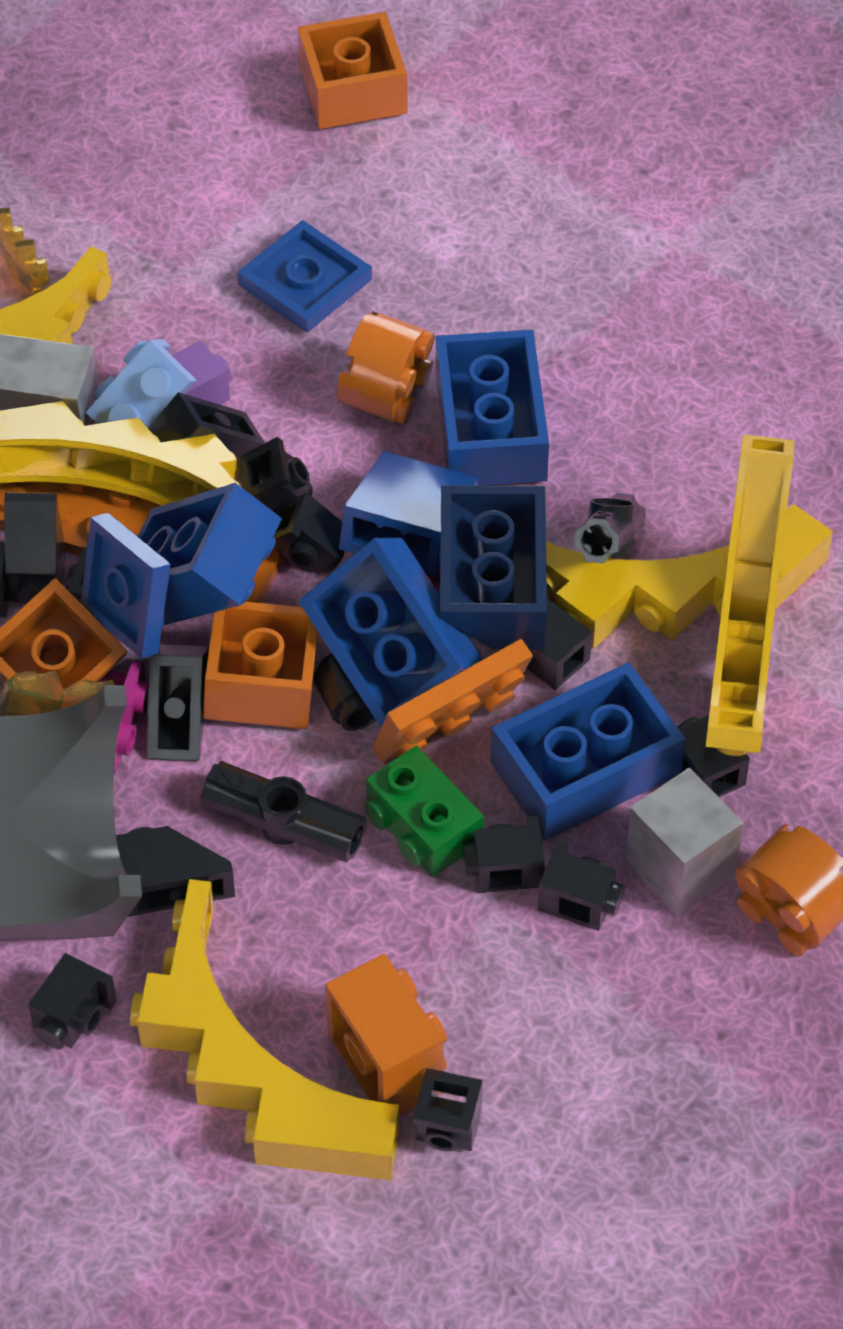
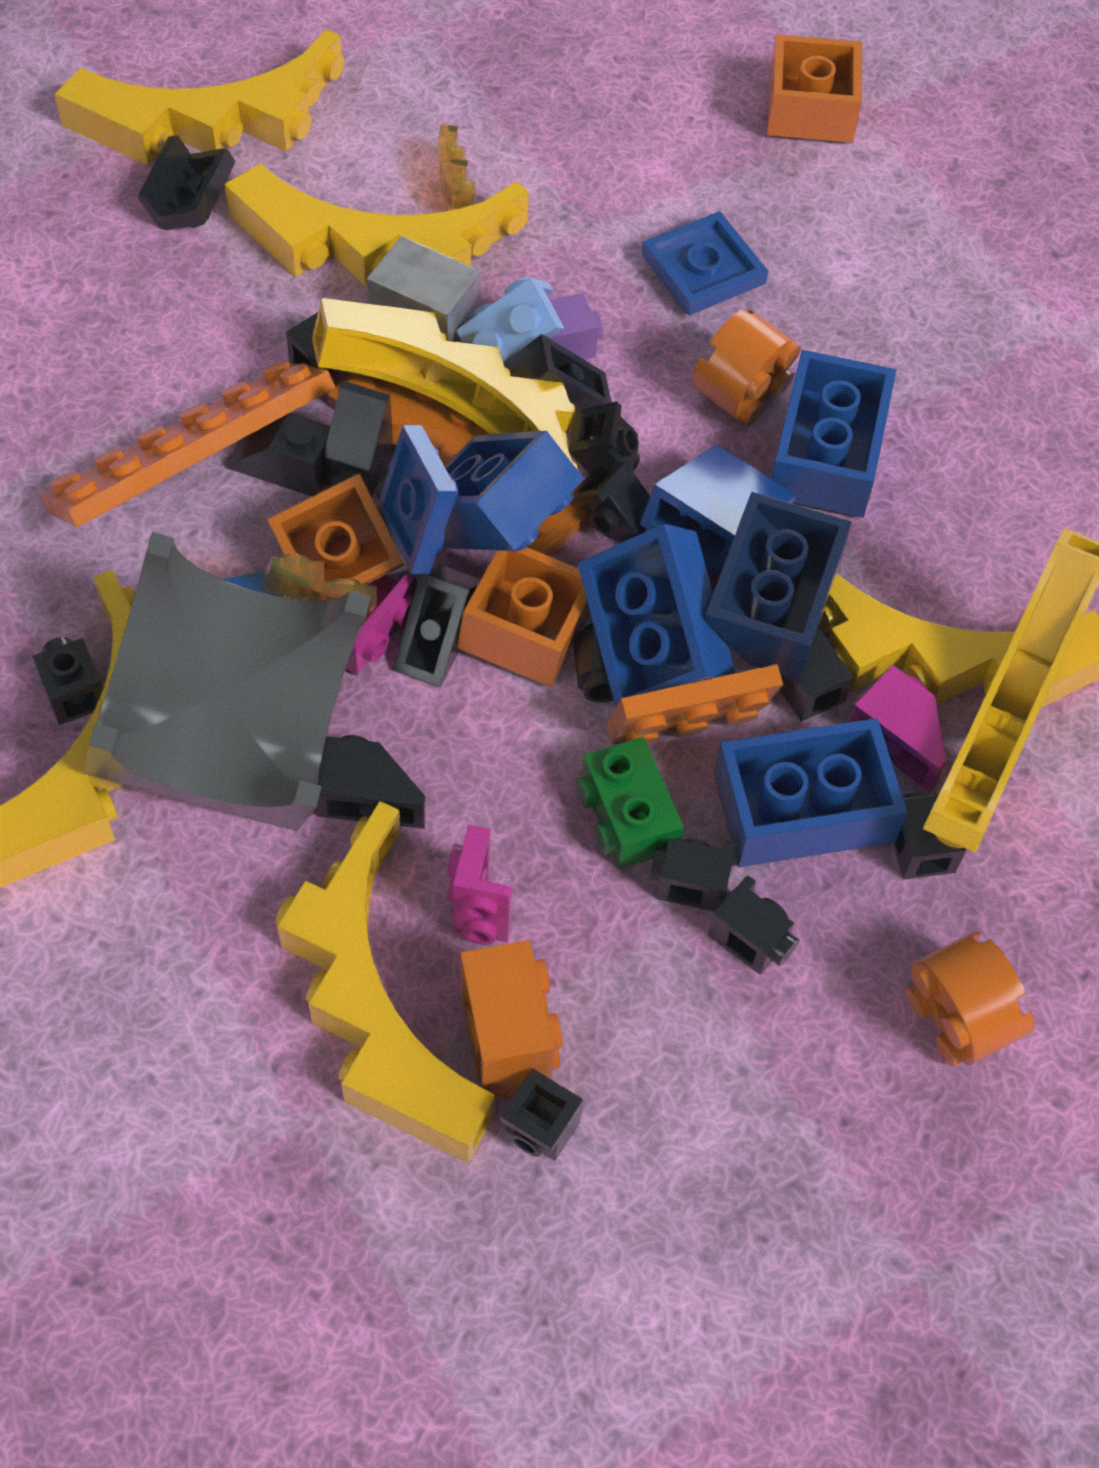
camera: 15 degrees right, 5 degrees up
(70, 1002) = (226, 885): black brick -> none
(257, 799) = (517, 781): black piece -> none
(320, 941) = (479, 906): none -> dark pink bracket
(609, 528) = (904, 580): black piece -> none
(658, 659) = (908, 724): none -> dark pink slope
(683, 841) = (871, 914): flat silver piece -> none

